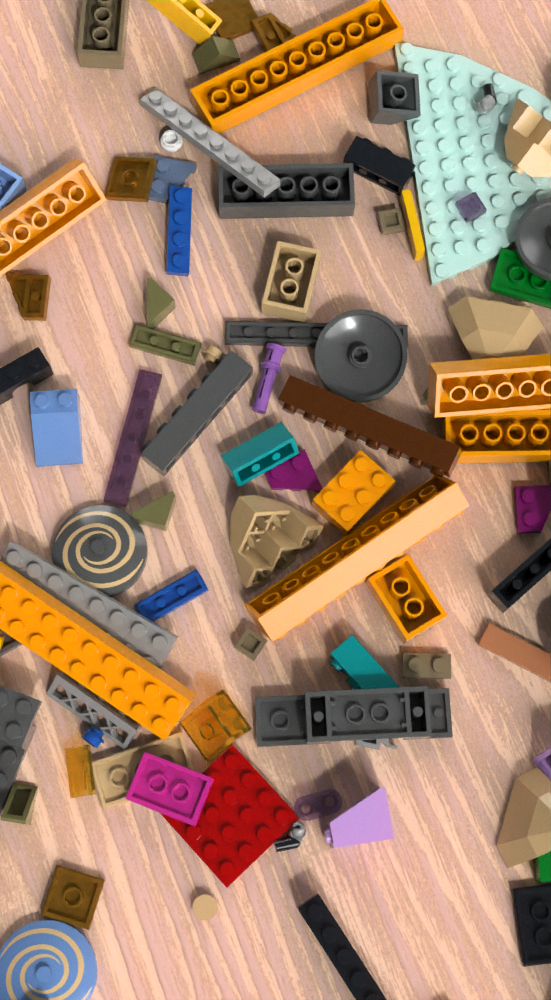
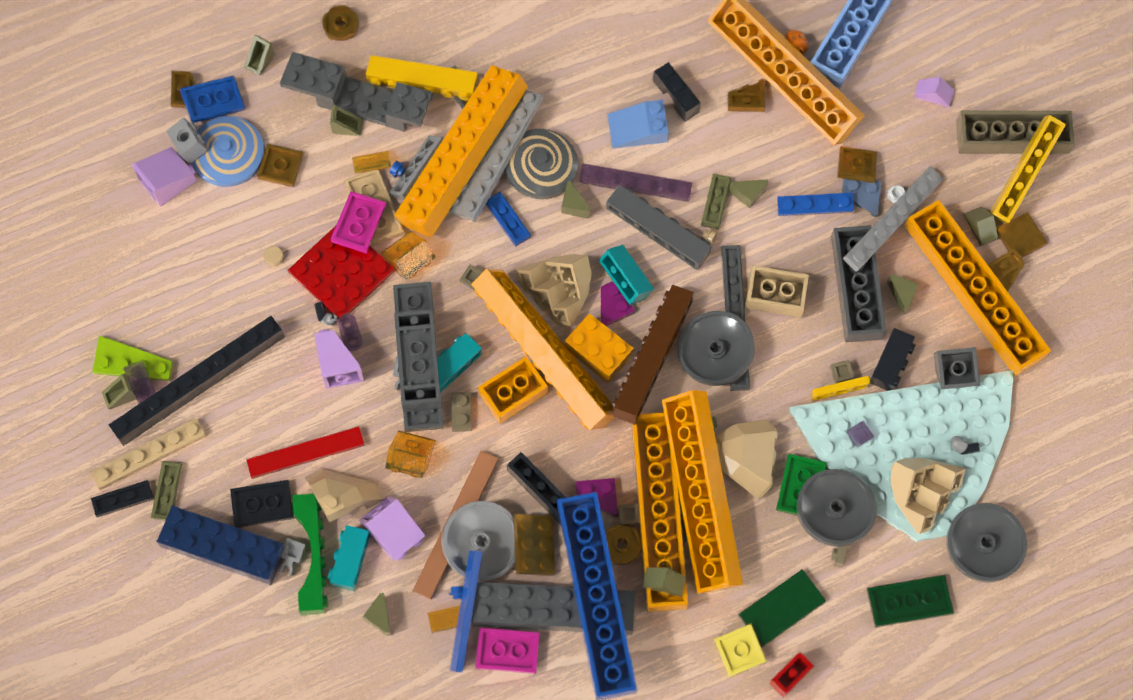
camera: 90 degrees right, 5 degrees down
(41, 86) = (934, 91): none -> lavender slope
(270, 368) = (701, 281): medium lavender pin -> none
(298, 145) = (903, 291): none -> olive slope
(476, 867) = (305, 452): none -> red tile
(482, 730) = (409, 454): none -> clear yellow slope

